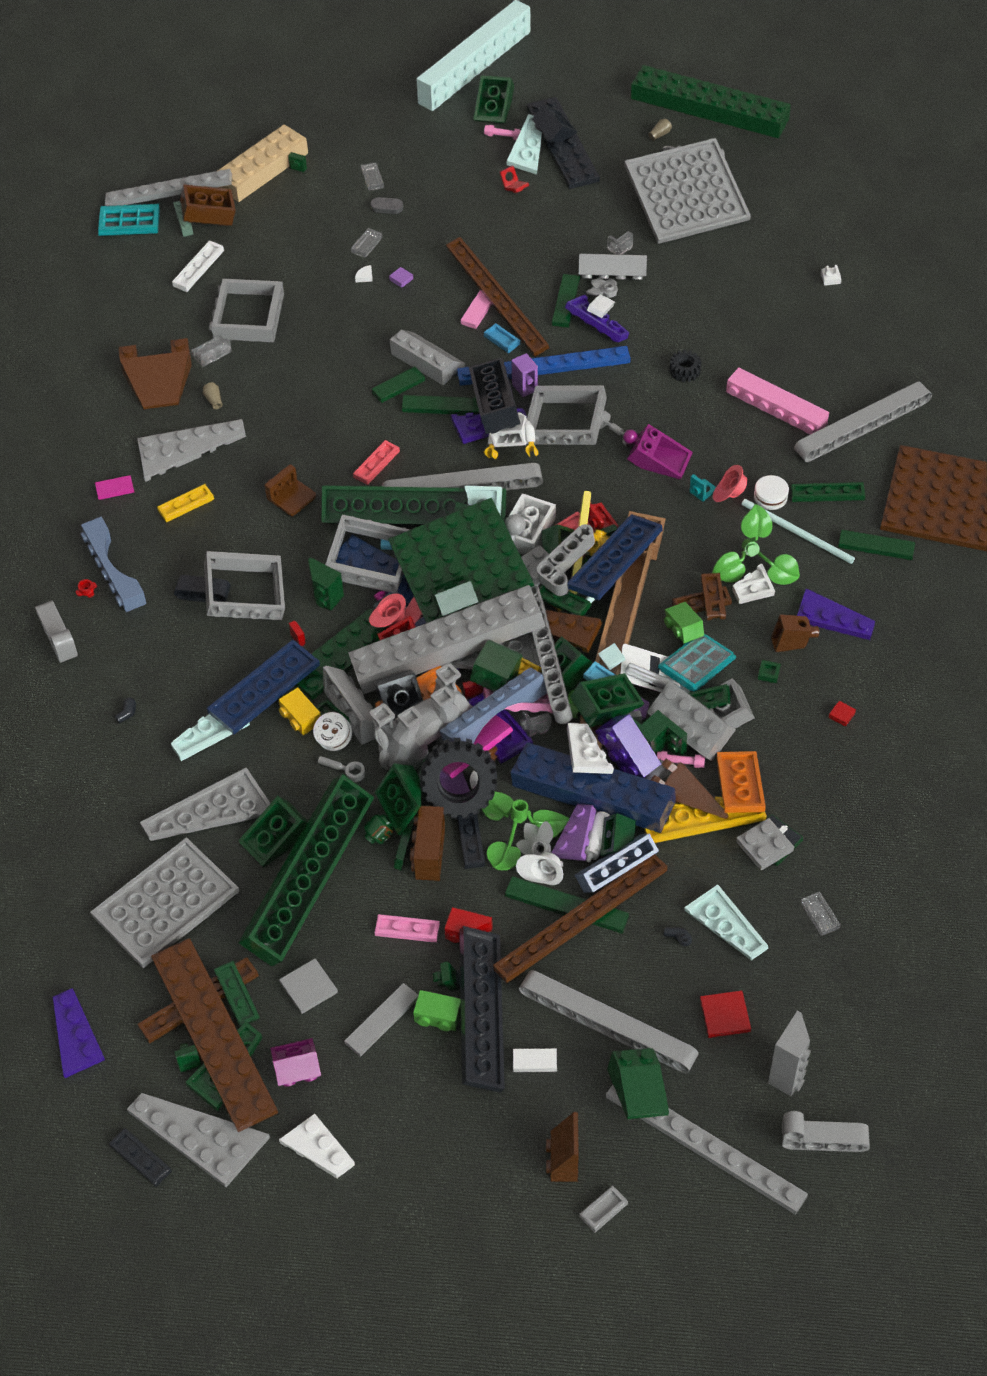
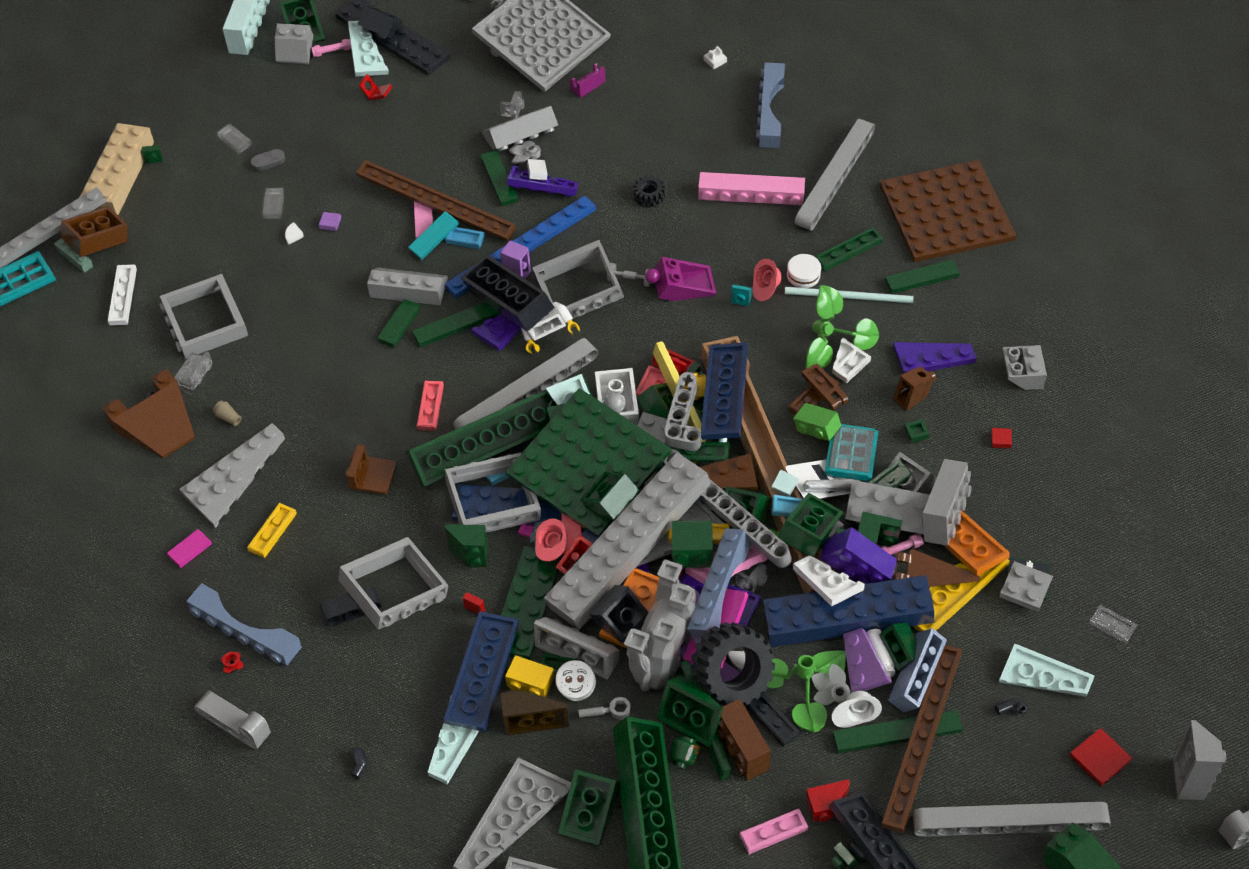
camera: 30 degrees left, 0 degrees up
(276, 738) = (531, 713): none -> dark brown slope
(471, 115) = (293, 43): none -> light grey slope
(475, 324) = (433, 235): none -> teal tile
(701, 250) = (588, 82): none -> magenta hinge
(741, 738) = (946, 502): none -> light grey brick
(867, 316) = (769, 126): none -> sand blue arch
(907, 662) = (1025, 366): none -> light grey slope

